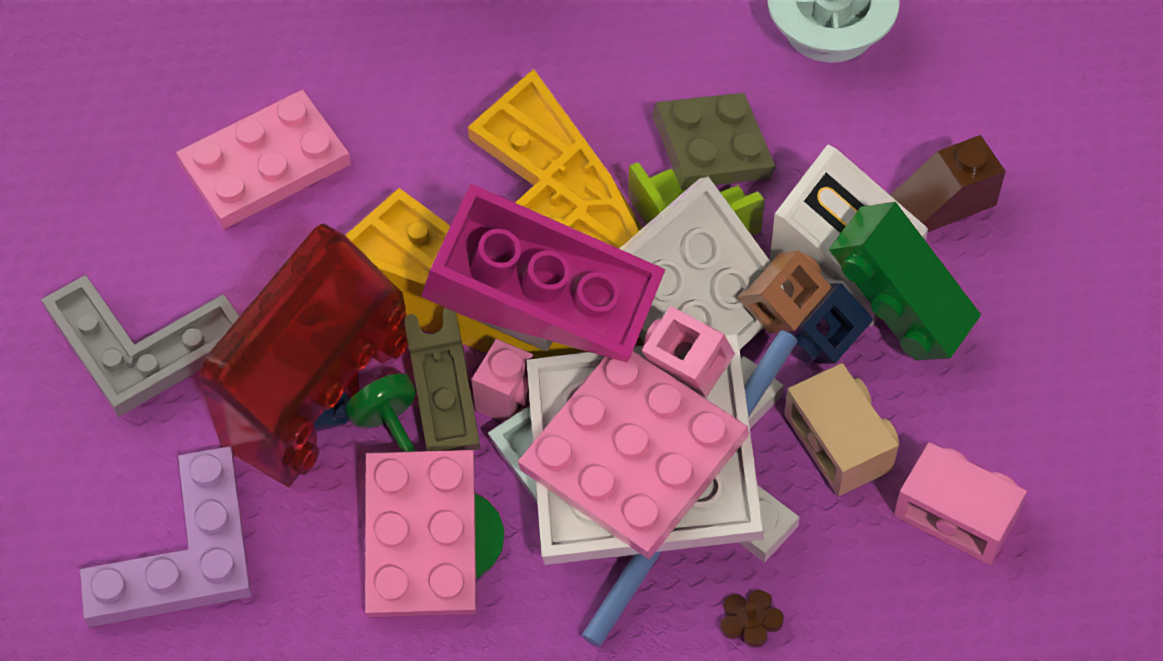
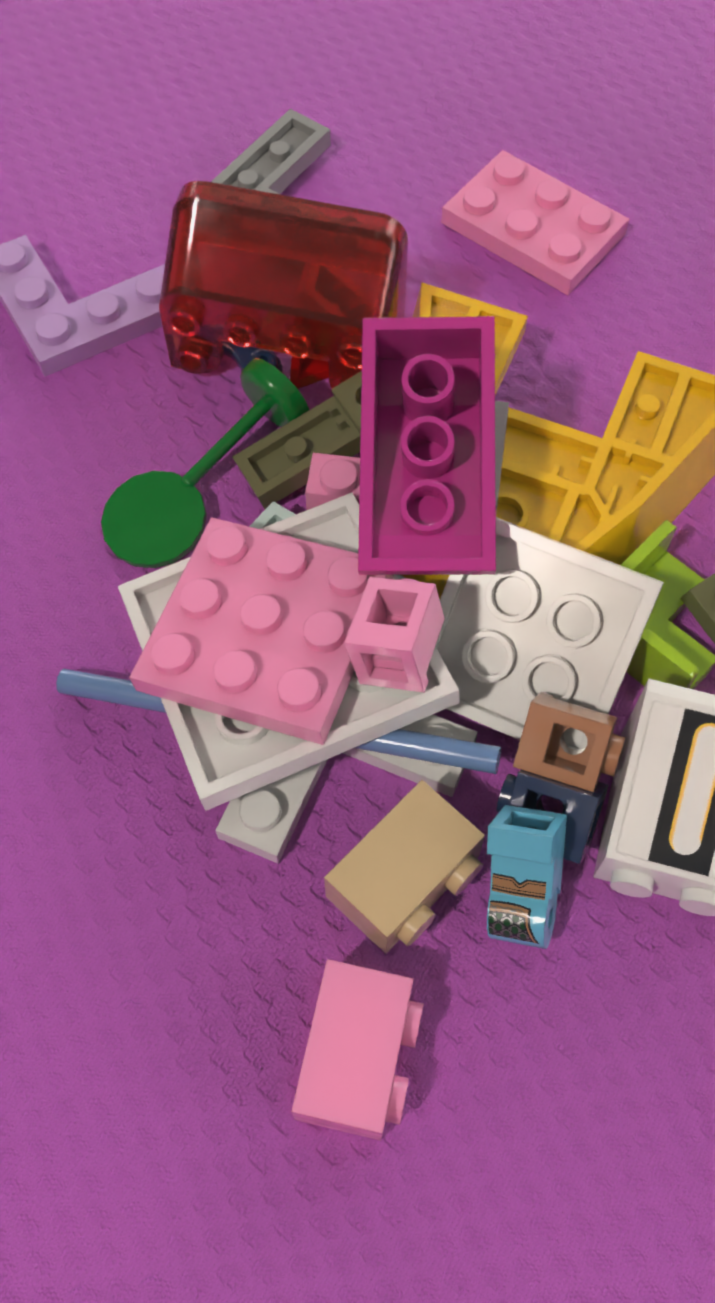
camera: 70 degrees right, 5 degrees up
(420, 534) = (135, 480): bright pink plate -> none
(751, 618) = (135, 841): reddish brown plant -> none
(872, 353) = (525, 874): none -> medium azure leg
(905, 282) = (633, 878): green brick -> none

